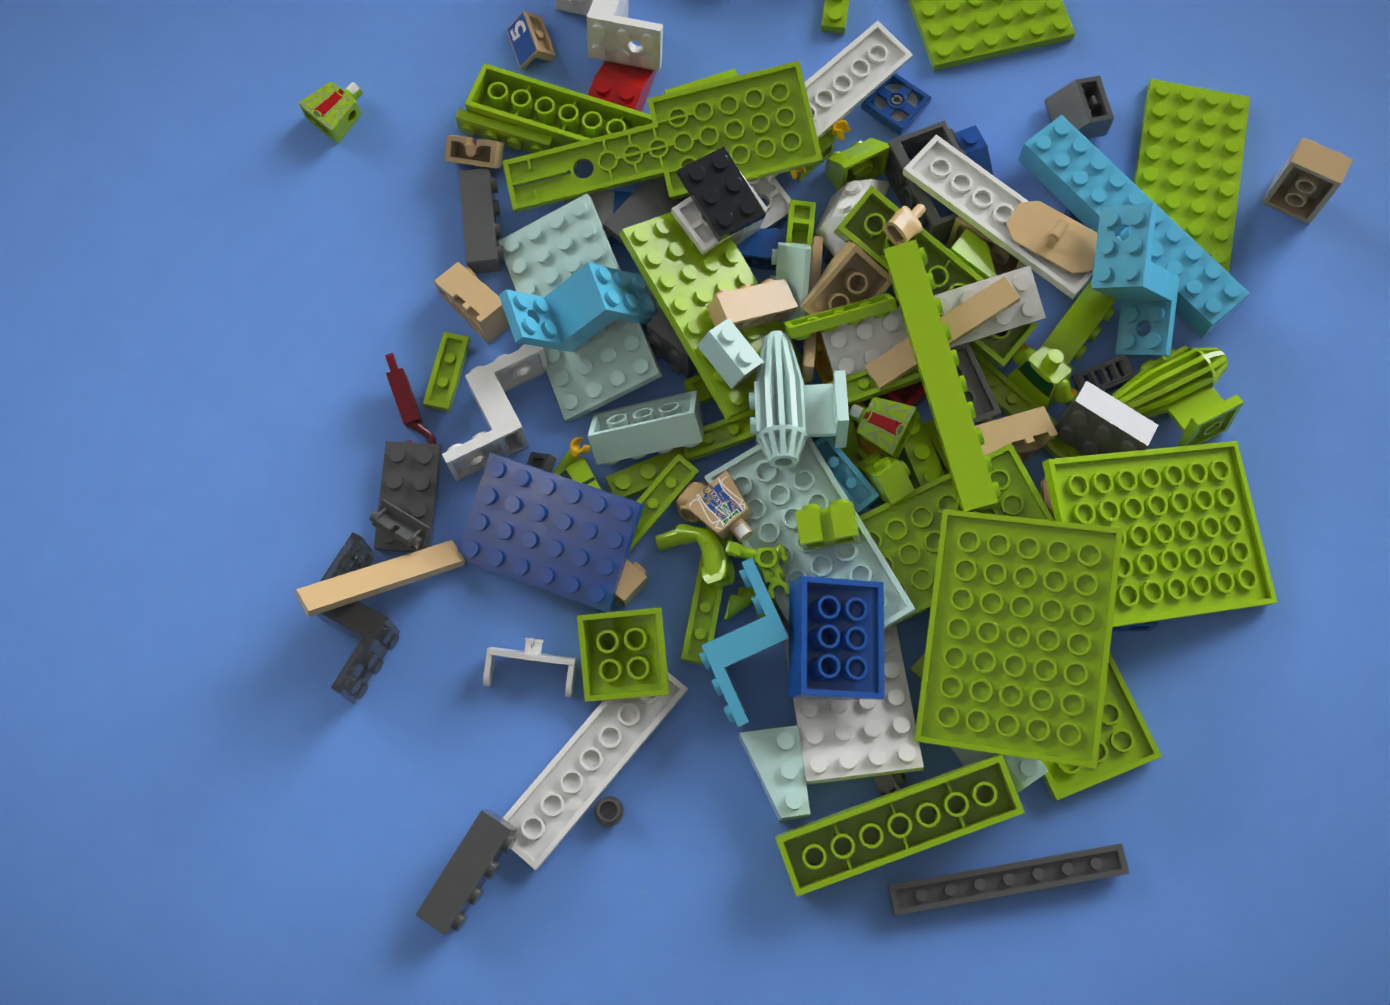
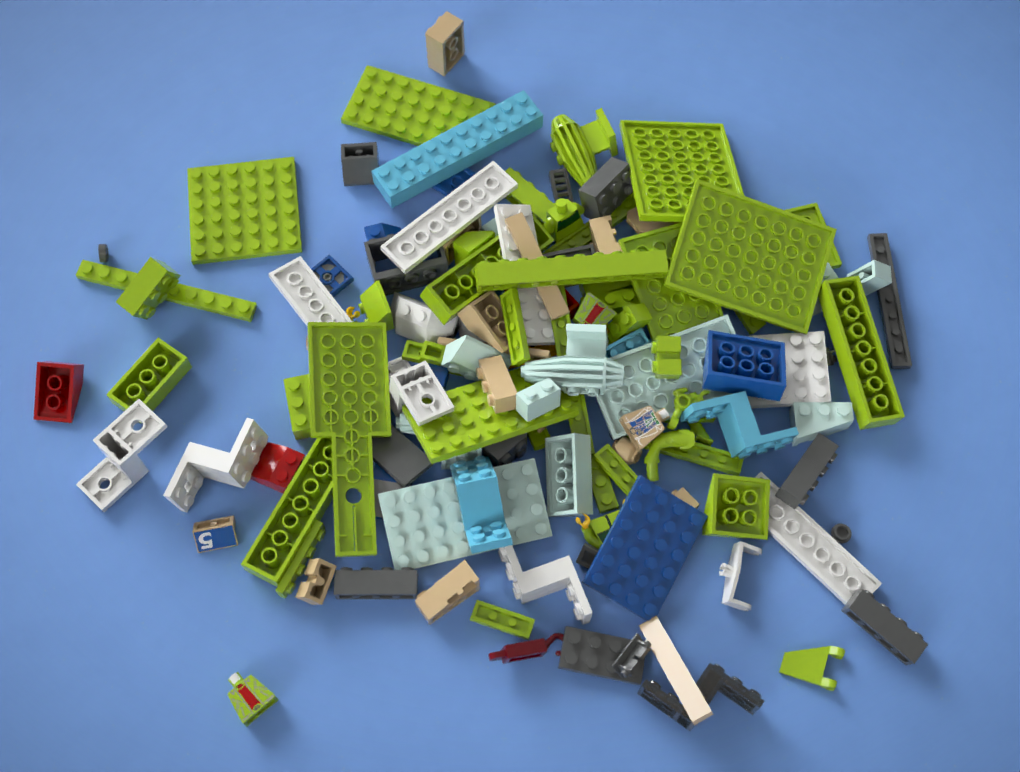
camera: 85 degrees left, 5 degrees down
(413, 772) = (810, 665): none -> lime flag
(694, 753) = (807, 470): none -> dark grey brick
(721, 193) = (412, 387): black plate -> none
(904, 224) = (459, 270): tan piece -> none
(1033, 841) = (873, 276): none -> light aqua brick
(1053, 236) = (473, 187): tan shield -> none
(1128, 275) = (511, 148): medium azure bracket -> none

